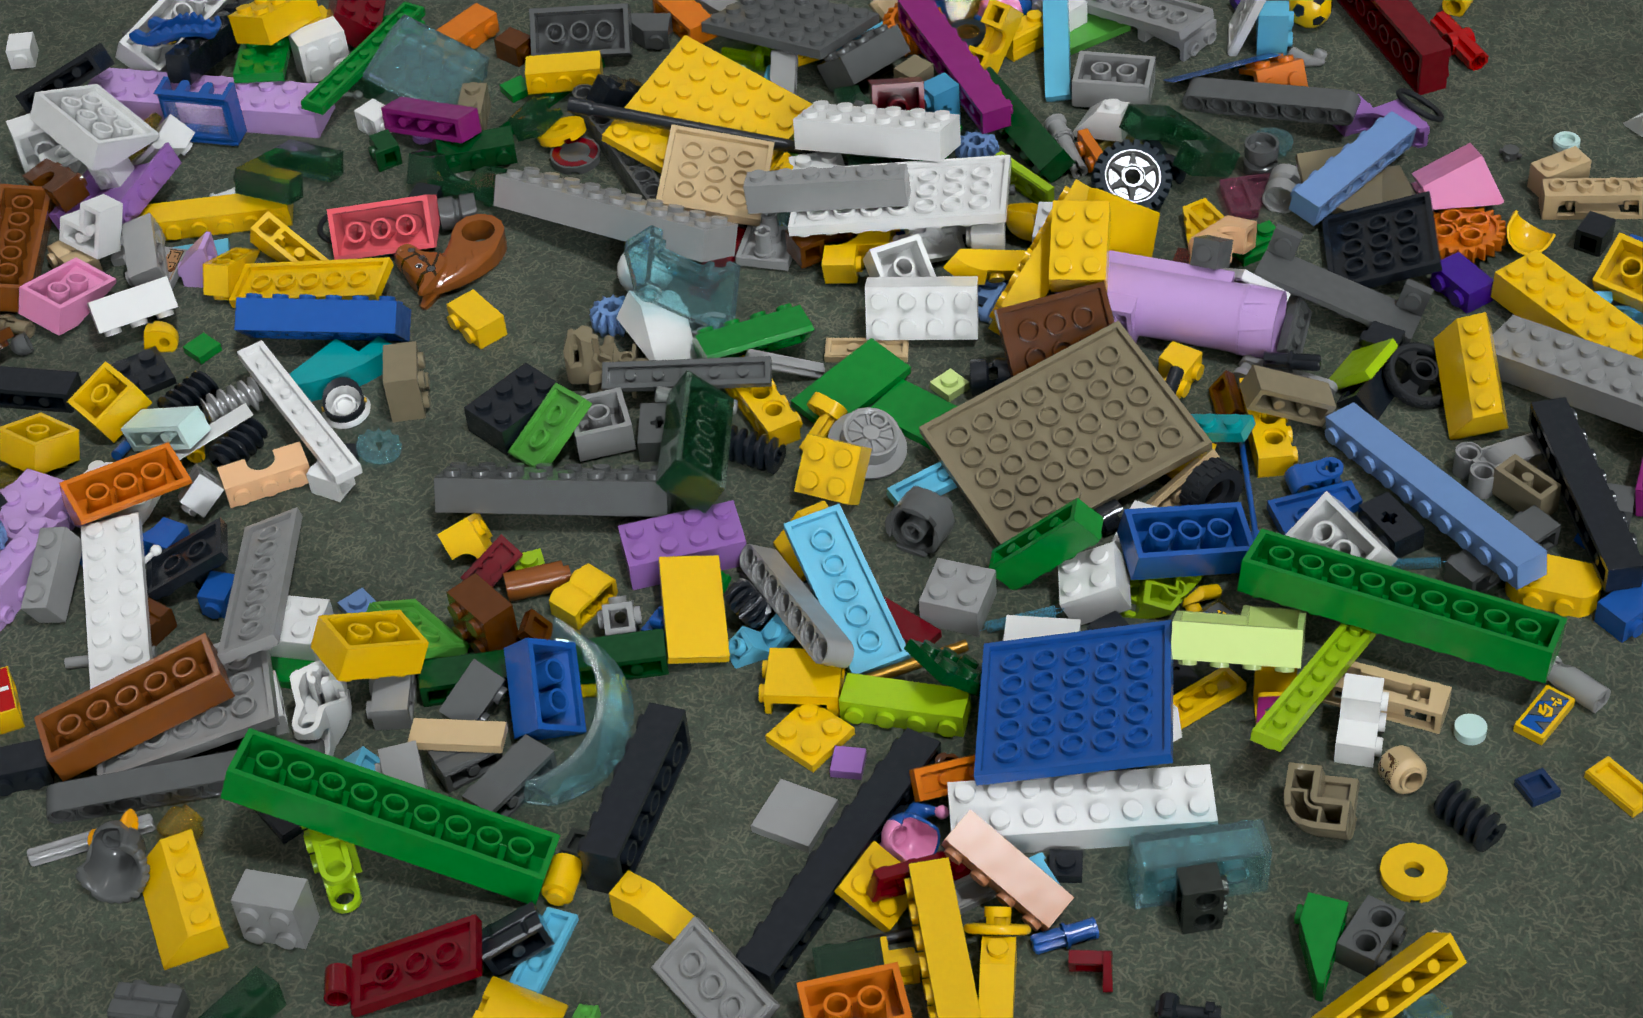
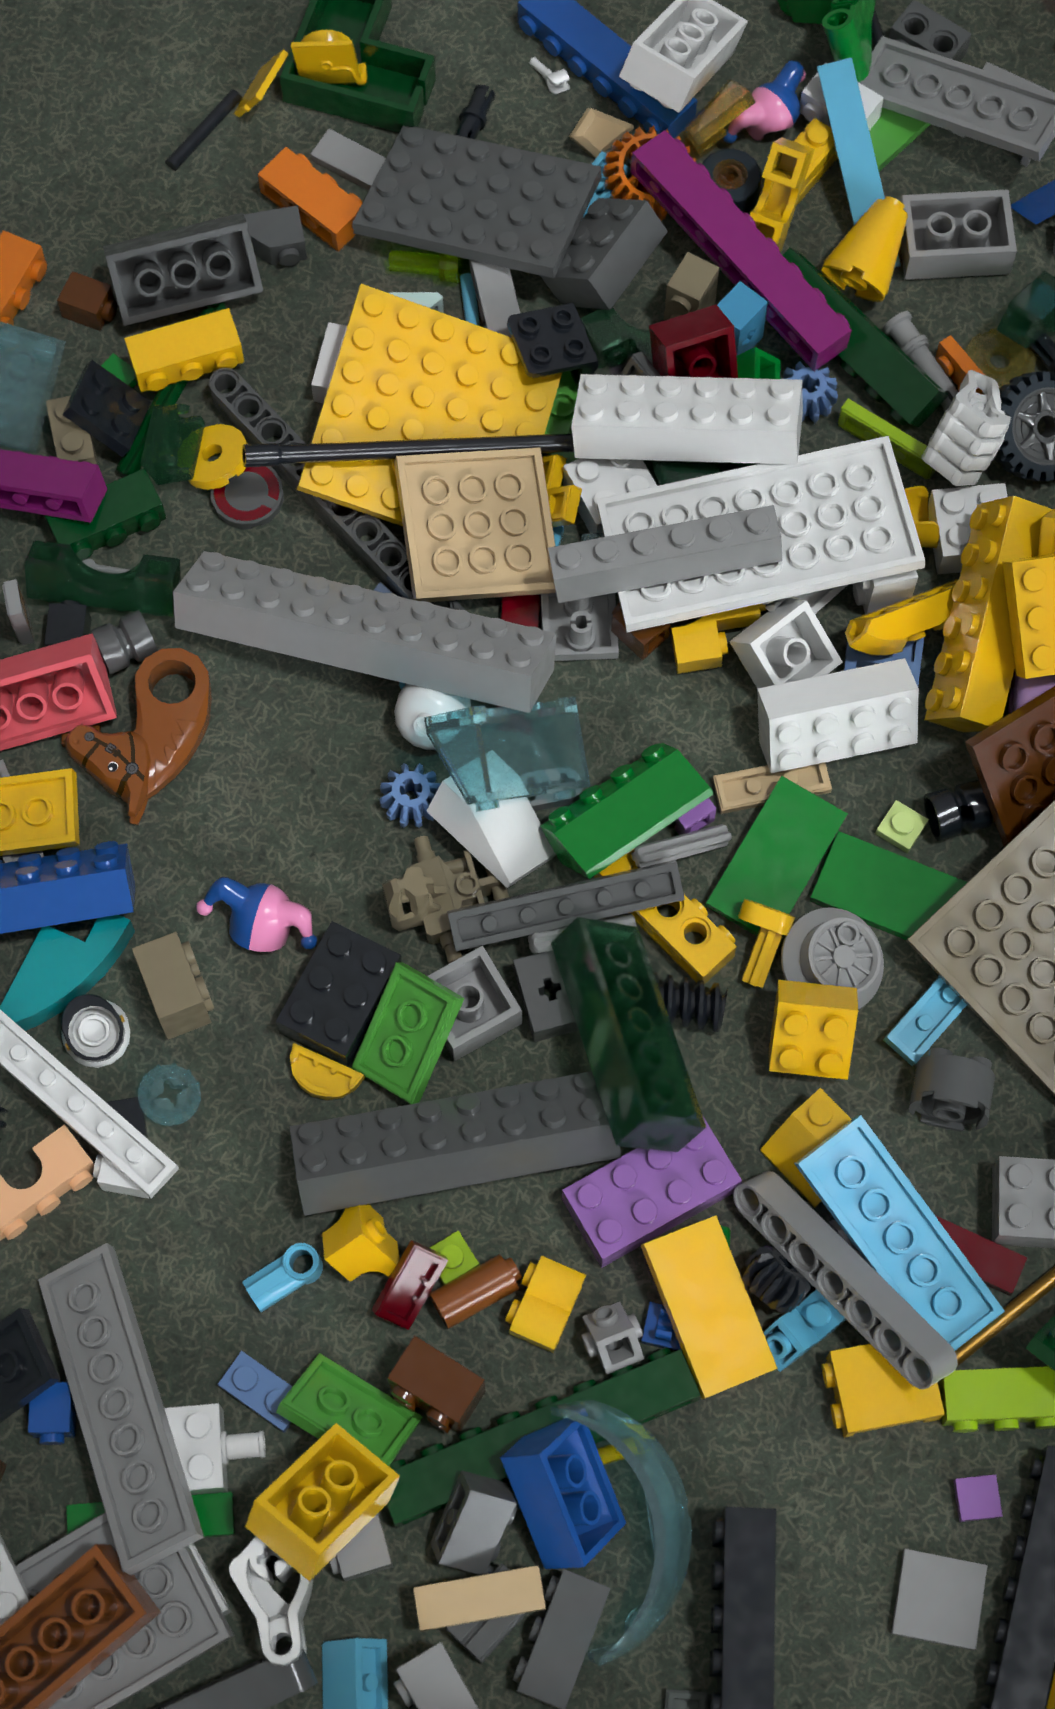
camera: 20 degrees left, 25 degrees up
(394, 178) = (18, 612): none -> light grey tile
(419, 548) = (279, 1278): none -> medium azure piece
(476, 319) = (222, 839): yellow piece -> none
(482, 359) = (259, 915): none -> piece
(484, 450) = (321, 1075): none -> yellow plate
(499, 92) = (106, 408): none -> black plate
(535, 626) = (504, 1376): reddish brown plate -> none
(613, 90) = (285, 397): black brick -> none
(804, 88) = (553, 342): none -> black bracket
(804, 350) = (696, 818): none -> medium lavender tile
(810, 735) = (916, 1466): yellow plate -> none
(1044, 77) = (869, 251): none -> yellow cone
(1069, 160) = (968, 432): none -> white piece
(1104, 120) = (963, 309): white slope -> none

